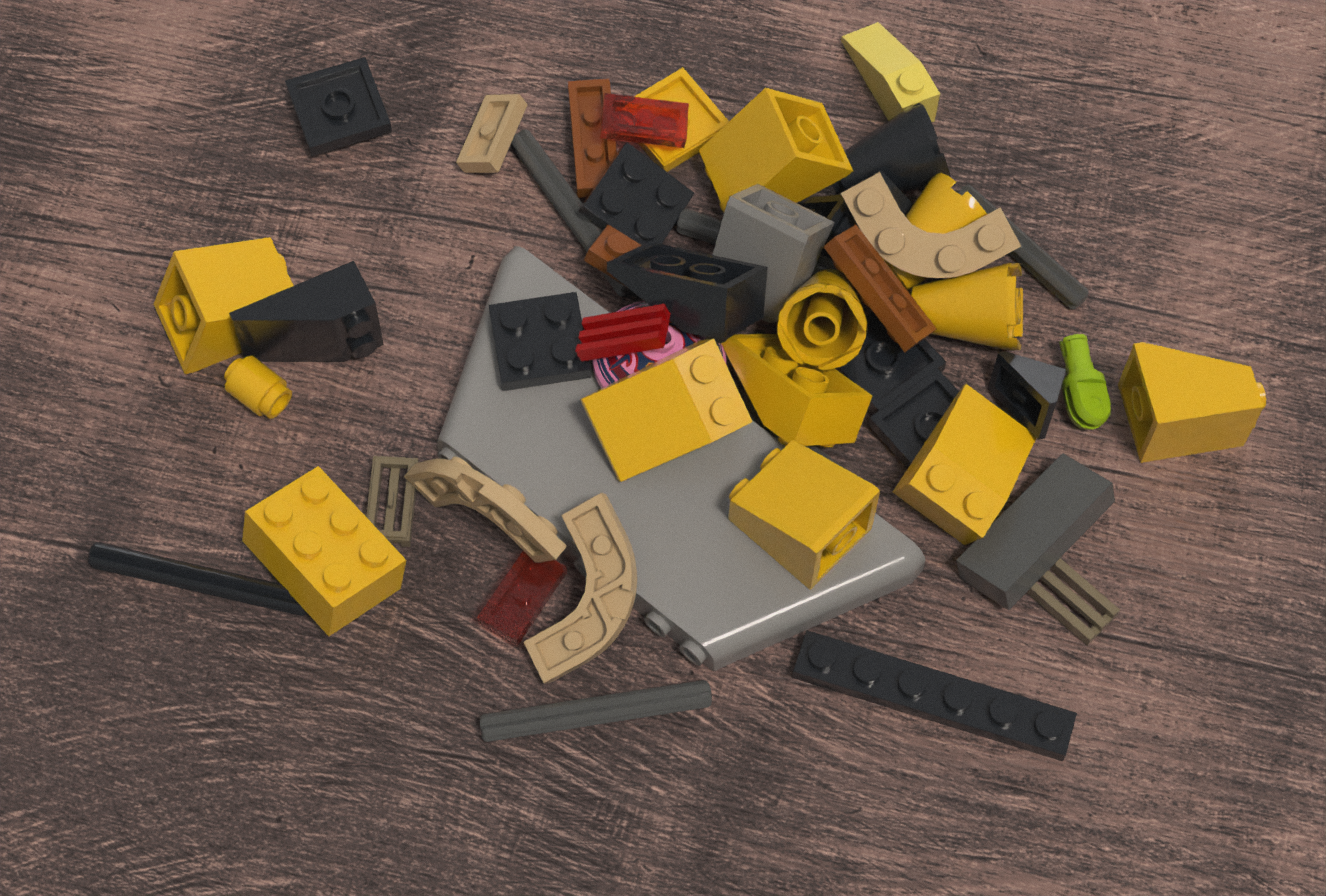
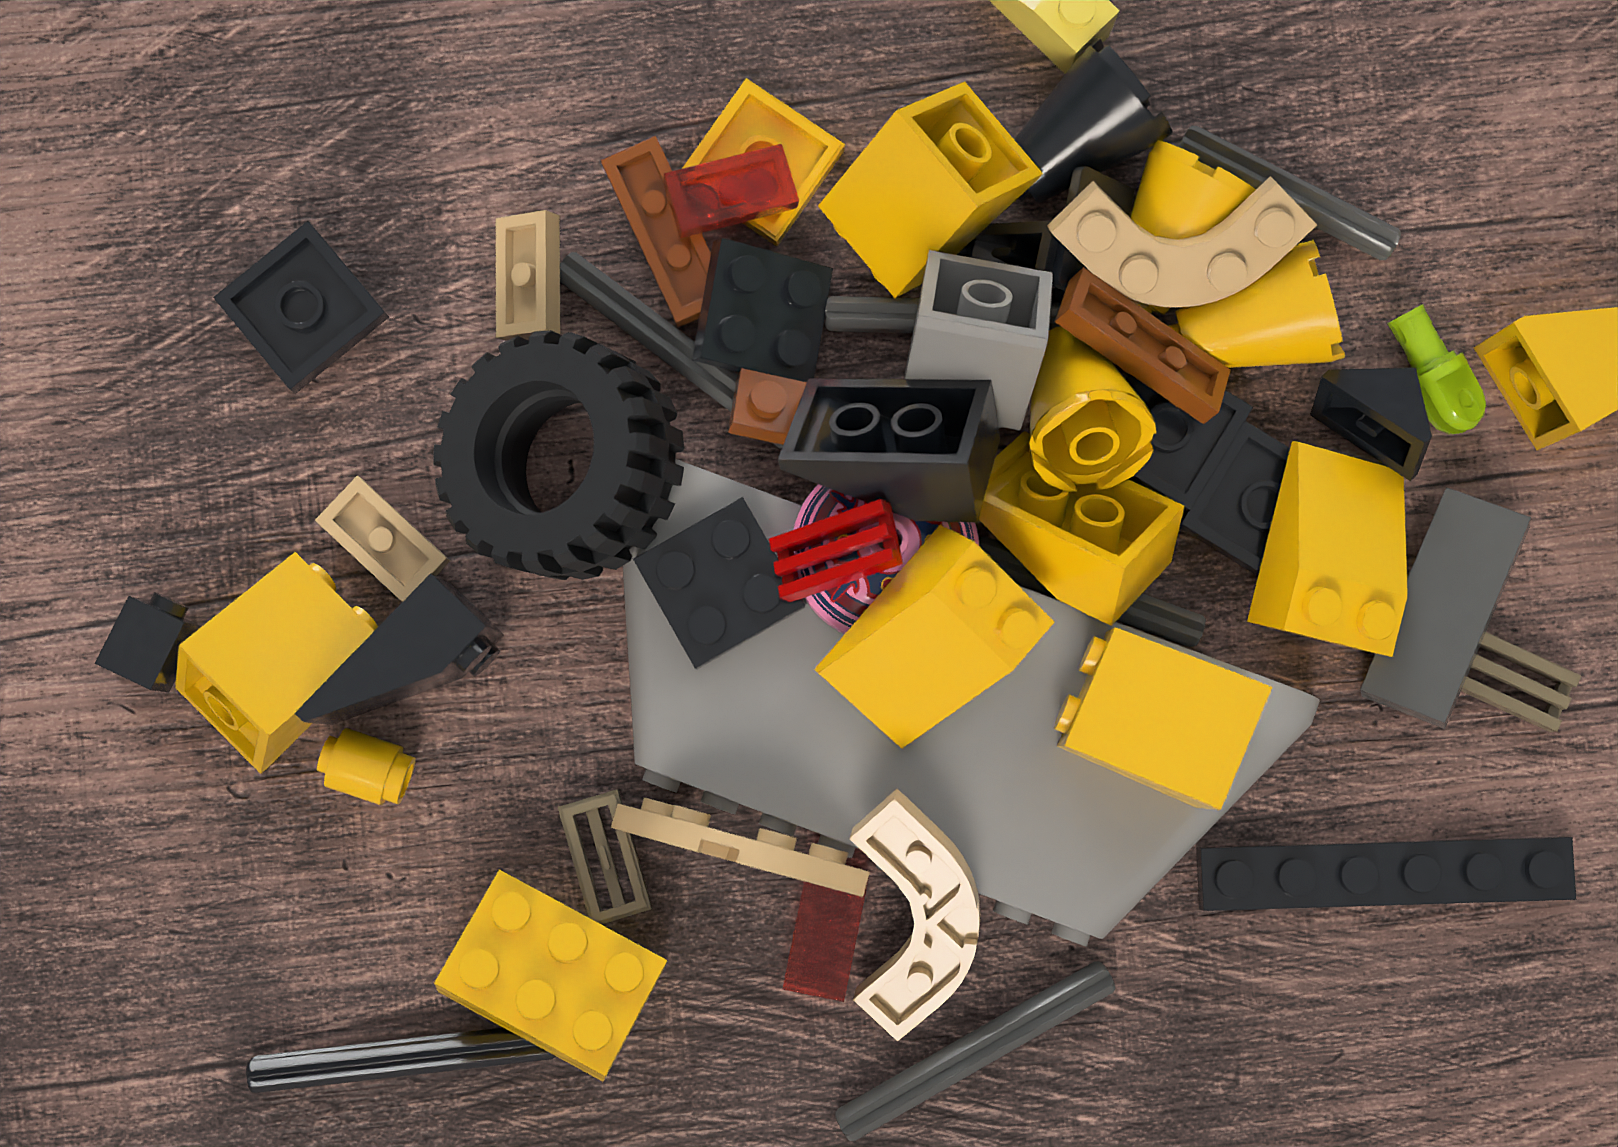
camera: 20 degrees left, 20 degrees up
(144, 264) = (147, 641): none -> black brick
(324, 244) = (381, 538): none -> tan plate
(486, 262) = (490, 441): none -> black tyre

